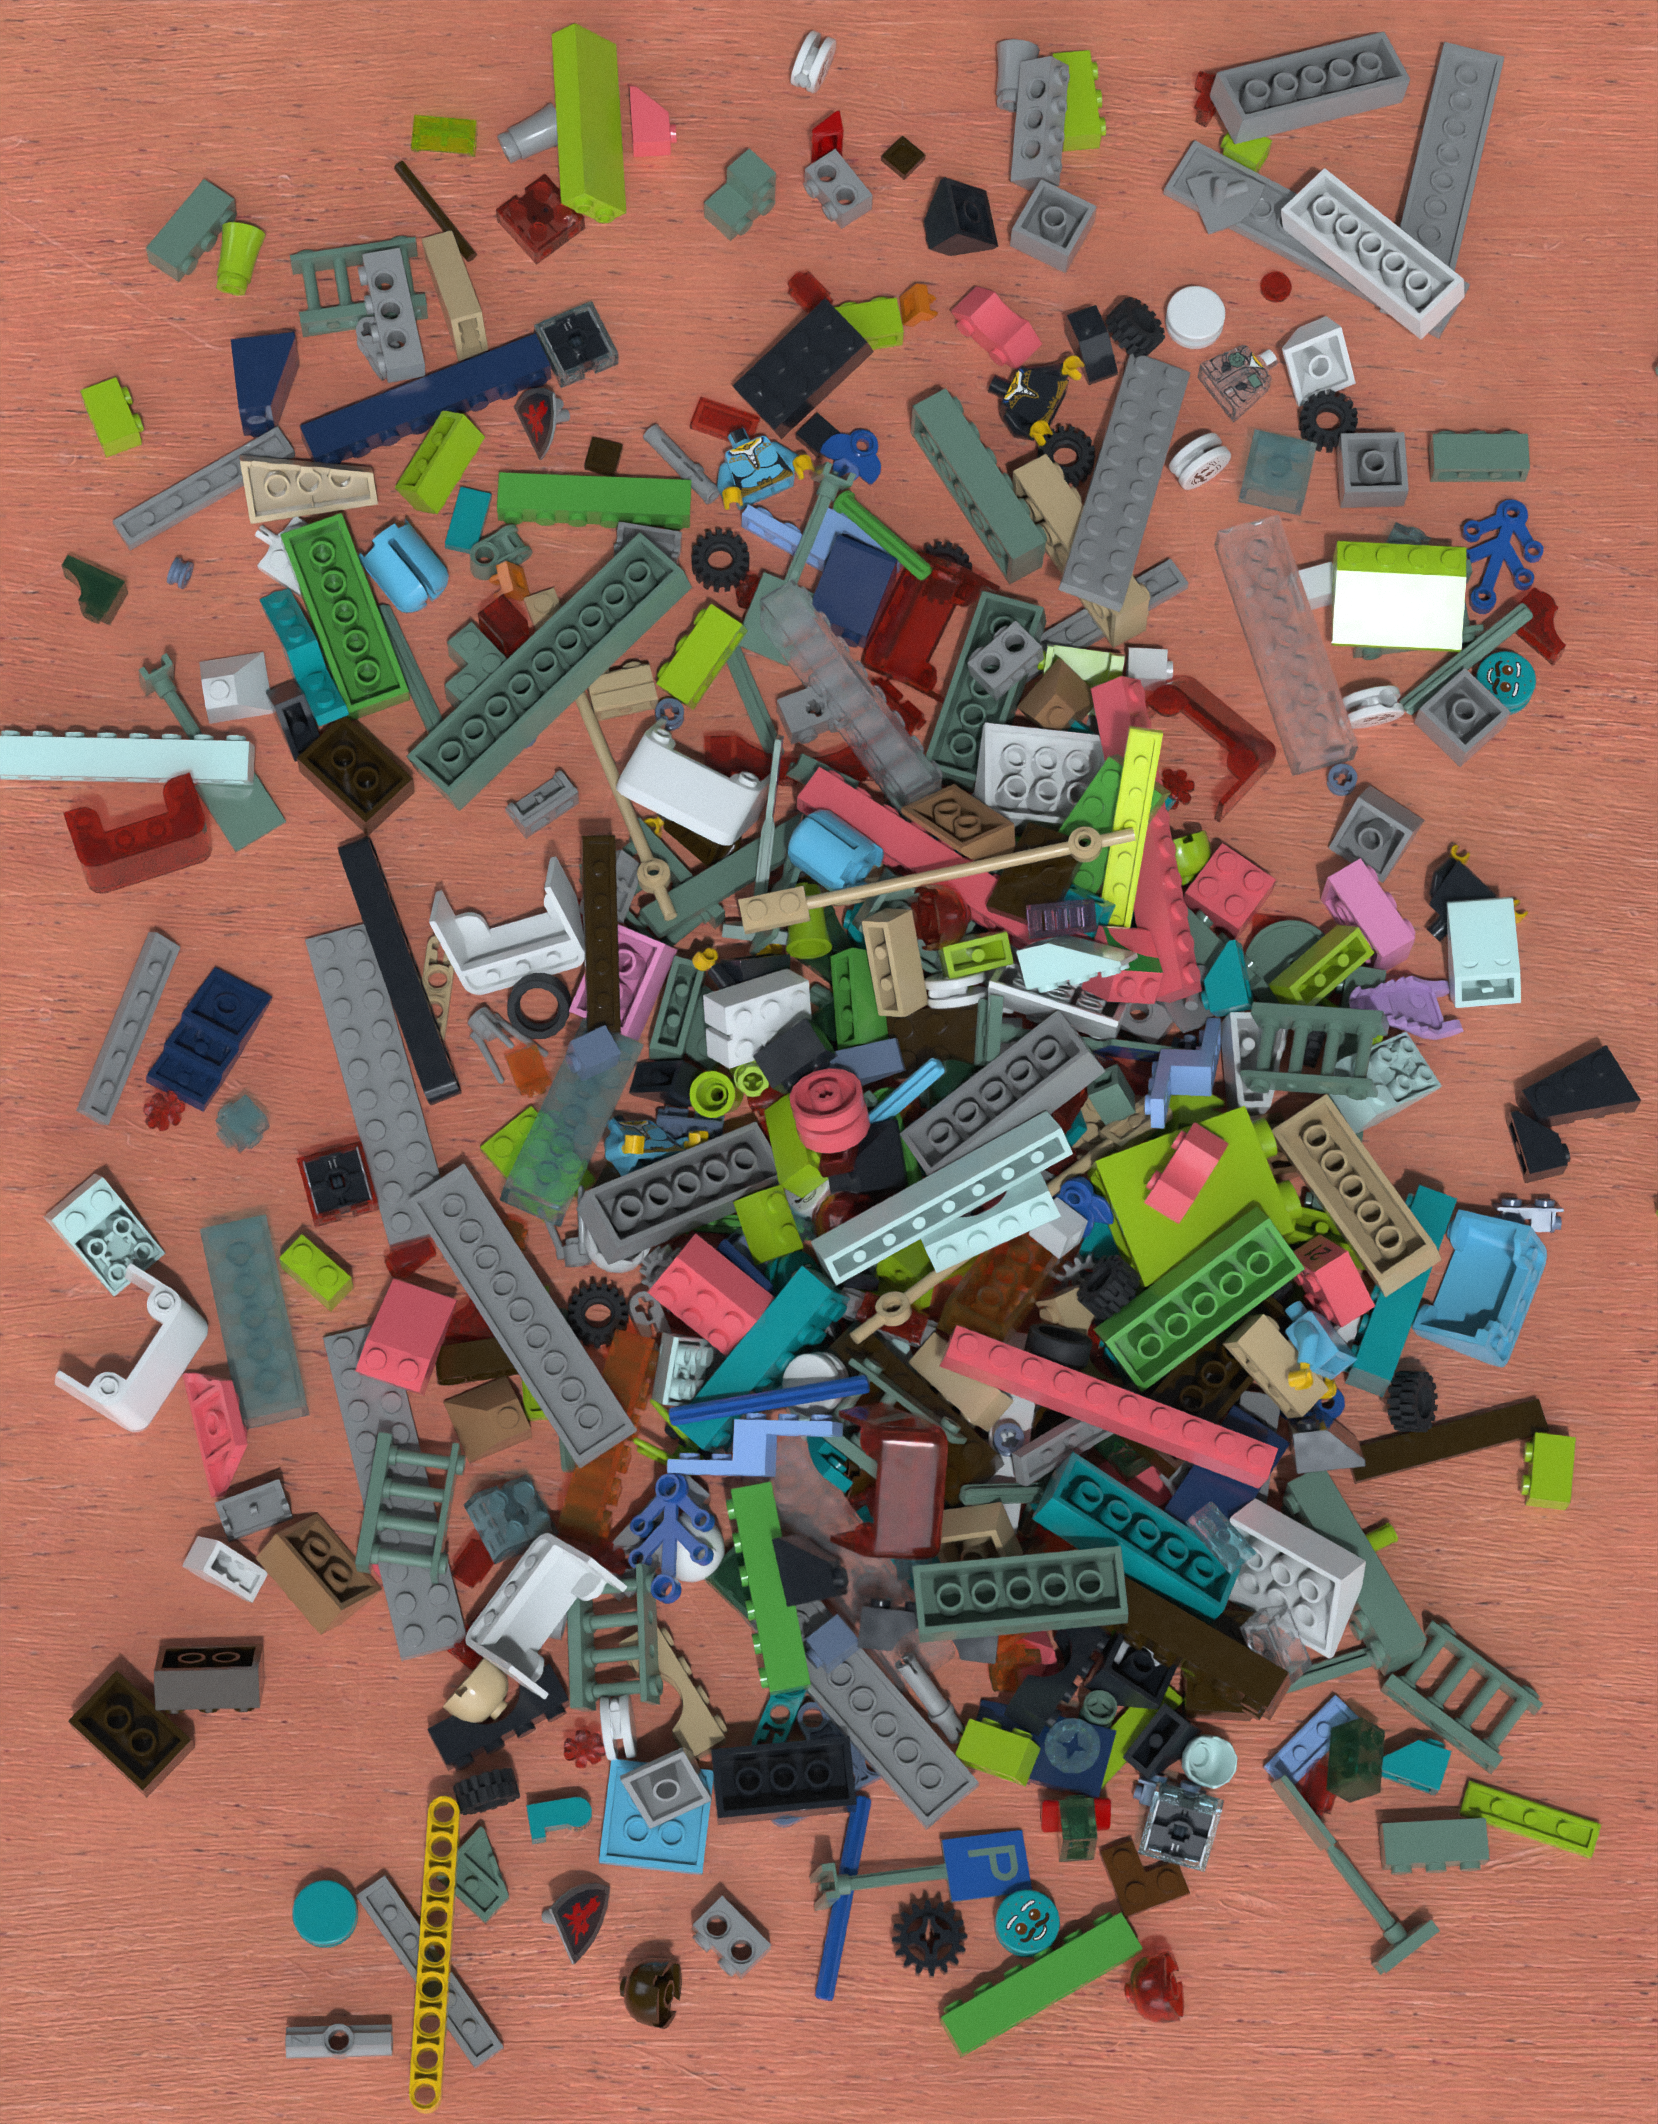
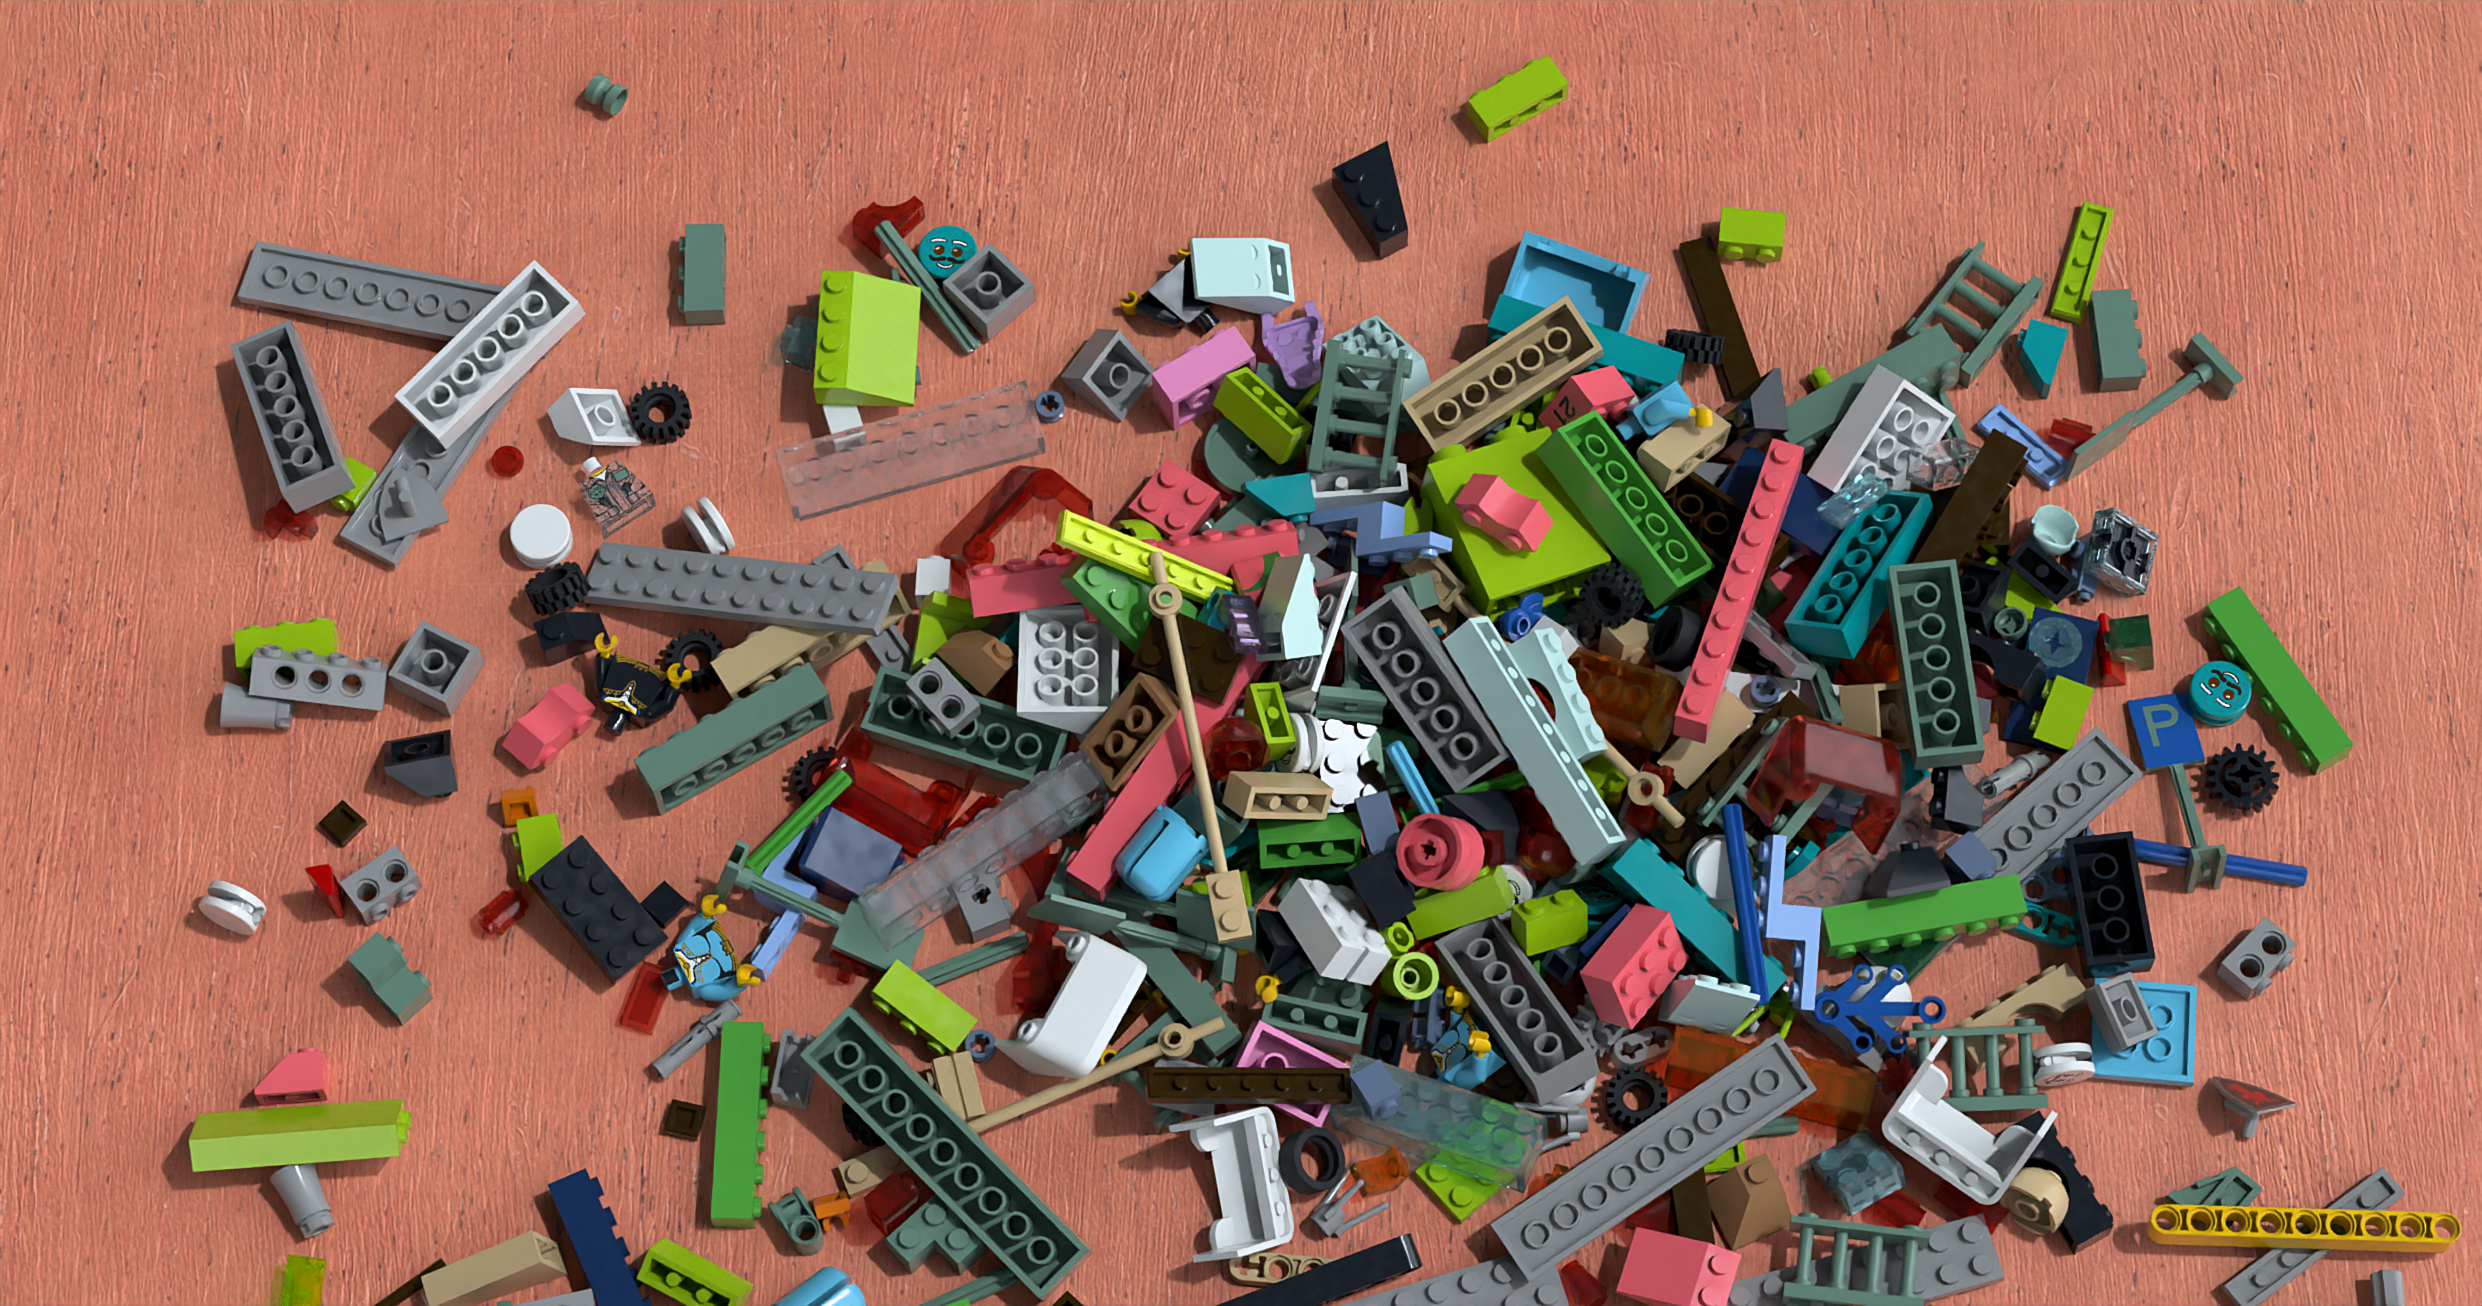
camera: 85 degrees left, 5 degrees down
(468, 520) = (757, 1256): teal tile -> none
(486, 1791) = (2135, 1186): black tyre -> none
(539, 219) = (404, 1190): clear red piece -> none
(539, 414) = (645, 1179): shield -> none
(543, 805) = (1082, 1169): light grey hinge -> none
(556, 1815) = (2150, 1125): teal leg -> none
(576, 344) = (556, 1145): piece -> none
(584, 1748) = (2080, 1100): clear red plant -> none
(651, 1989) = (2317, 1029): dark brown cylinder -> none
(725, 543) = (808, 1016): black tyre -> none
(849, 458) = (695, 870): blue plate -> none
(1137, 1889) = (2175, 594): reddish brown plate -> none
(1155, 1989) = (2274, 578): clear red cylinder -> none
(1277, 472) = (719, 458): clear light blue brick -> none
(1355, 1760) = (2062, 401): clear green brick -> none
(1372, 469) = (720, 369): light grey brick -> none
(1373, 706) = (978, 368): white head -> none
(1500, 550) = (801, 258): blue plant -> none
(1537, 1148) = (1431, 239): black slope -> none
(1541, 1214) = (1496, 236): sand blue hinge -> none

